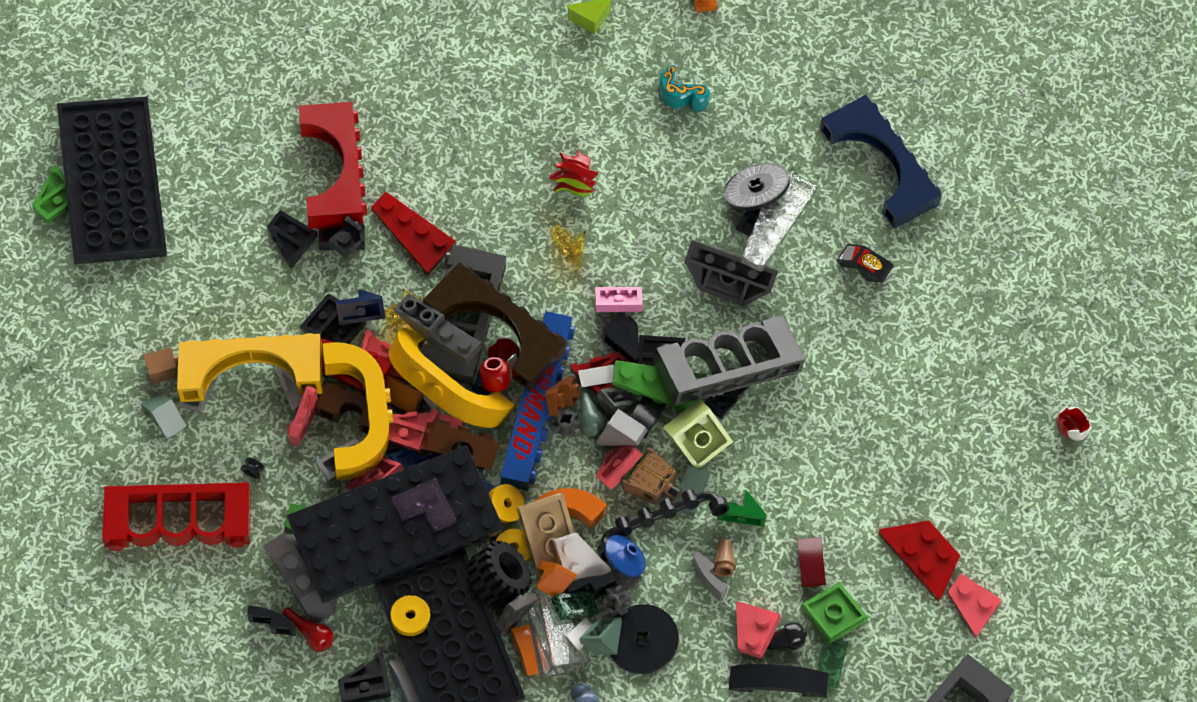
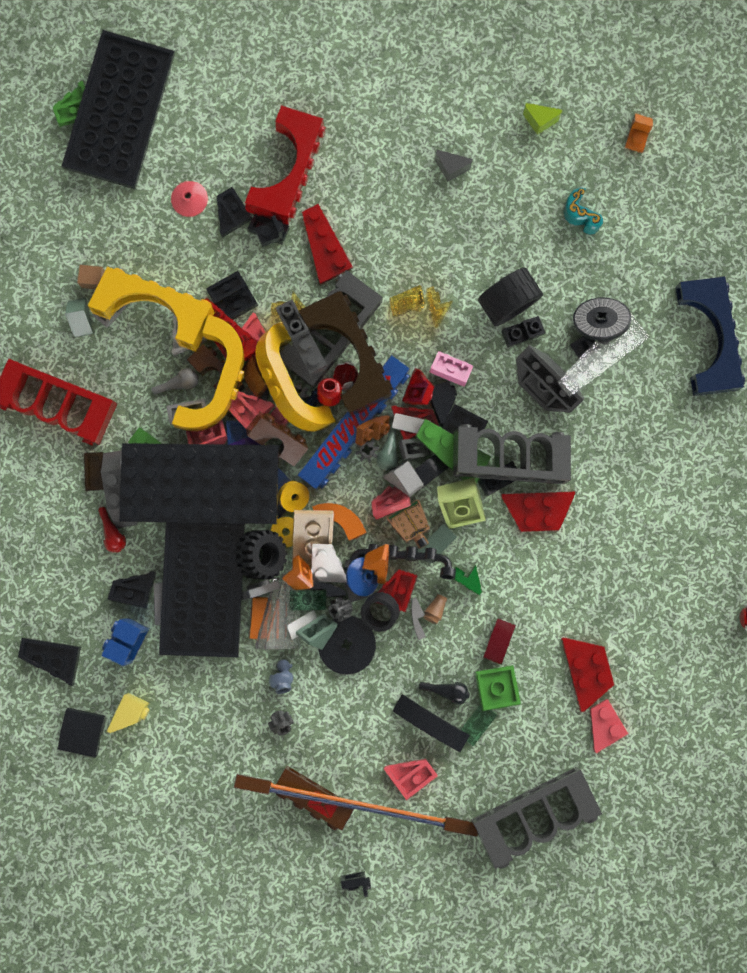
camera: 30 degrees right, 20 degrees up
(235, 251) = (193, 205): none -> coral dish
(252, 468) = (123, 387): black bush -> none
(258, 574) = (92, 471): none -> dark brown tile
(278, 623) = (89, 516): black slope -> none
(303, 417) = (175, 364): coral wing -> none
(321, 431) = (185, 379): none -> light grey piece
(360, 309) = (256, 295): dark blue slope -> none
(413, 605) = (171, 556): yellow piece -> none
(427, 499) = (227, 477): clear purple plate -> none
(516, 96) = (452, 164): none -> dark grey slope
(536, 250) = (408, 301): none -> clear yellow slope
(574, 175) = (465, 250): red hair -> none
(592, 336) = (419, 389): none -> red wing
(636, 527) = (378, 561): none -> orange slope
(647, 200) = (510, 296): none -> black tyre
(659, 601) = (372, 622): none -> black tyre
(671, 557) = (400, 588): none -> red wing
(678, 235) = (523, 332): none -> black slope
(755, 629) = (431, 676): coral wing -> none
(786, 409) = (538, 510): none -> red wing
(870, 264) = (657, 416): slope -> none

